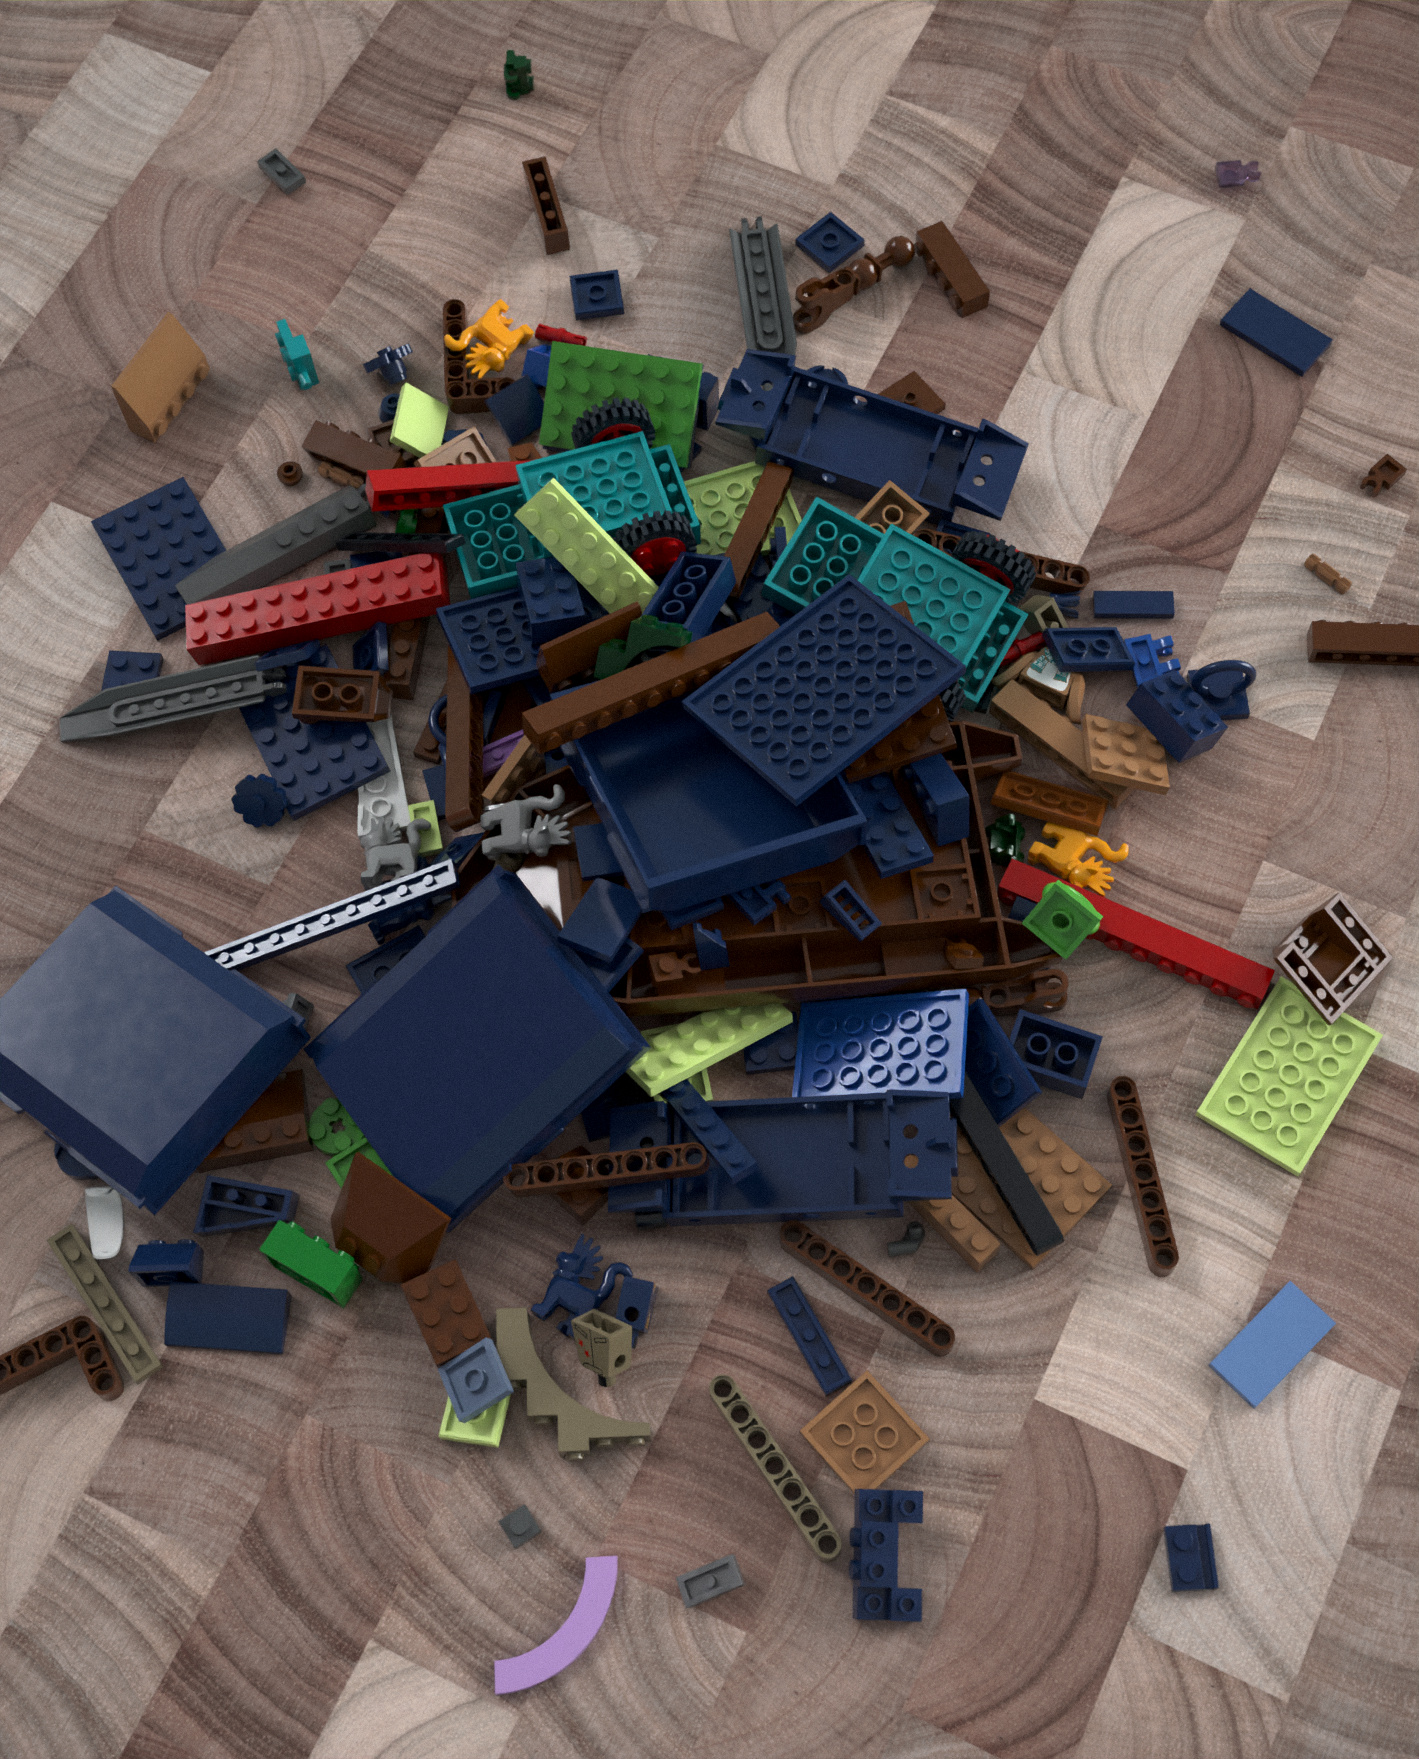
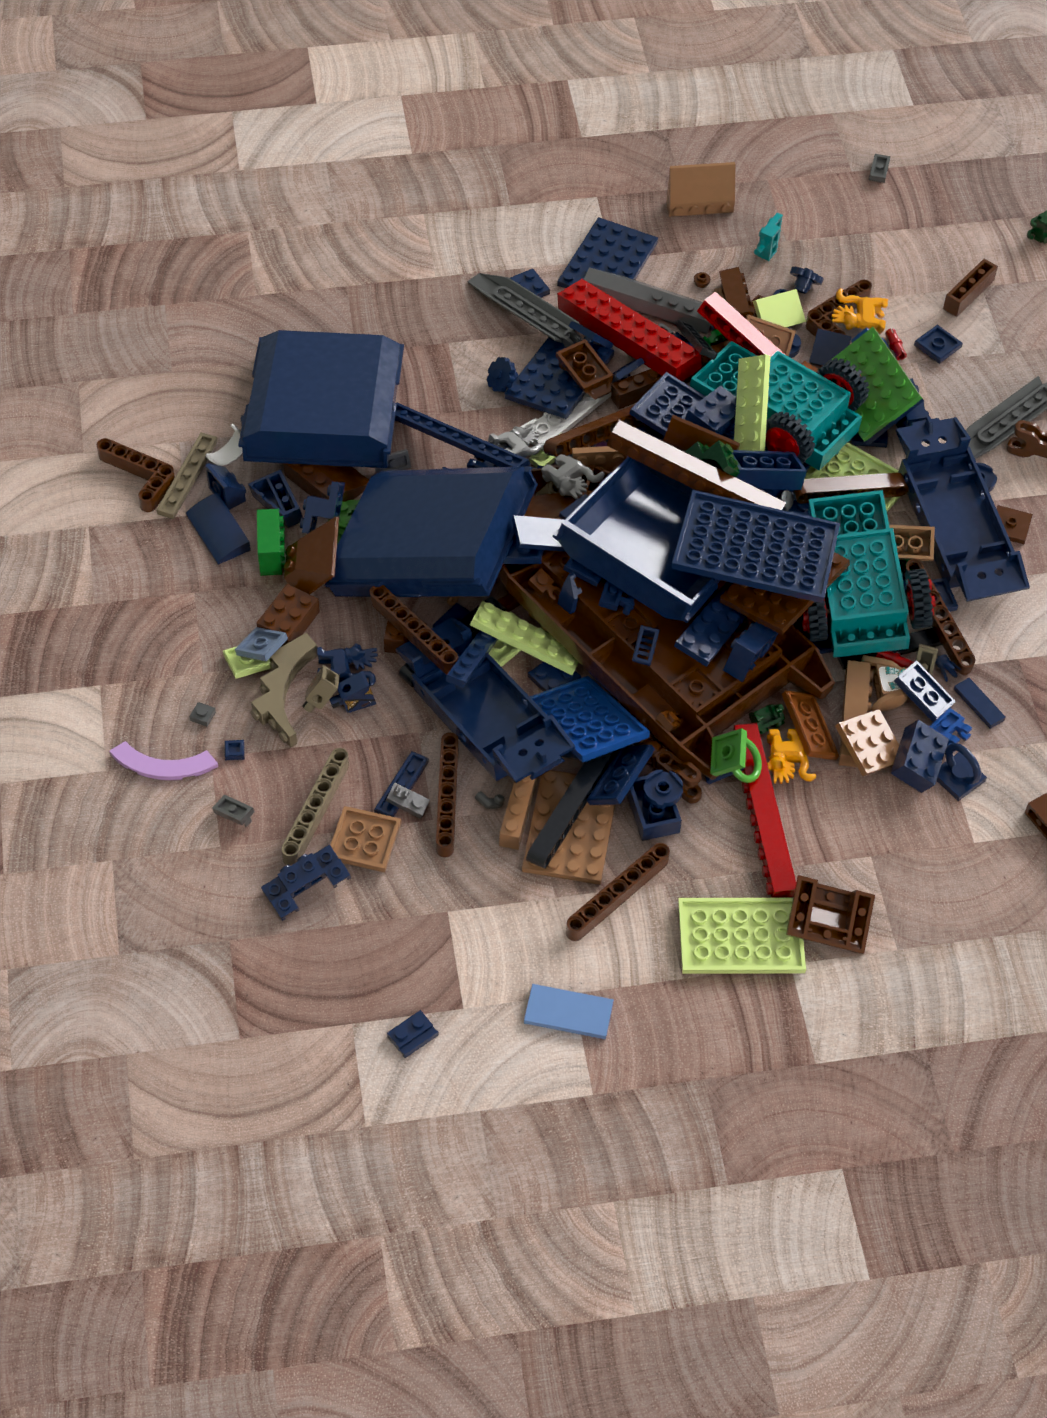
camera: 50 degrees right, 10 degrees down
(316, 1160) = (322, 507): none -> dark blue bracket
(607, 1519) = (234, 750): none -> dark blue tile
(842, 1343) = (407, 800): none -> flat silver plate
(1039, 1040) = (663, 798): none -> dark blue plate

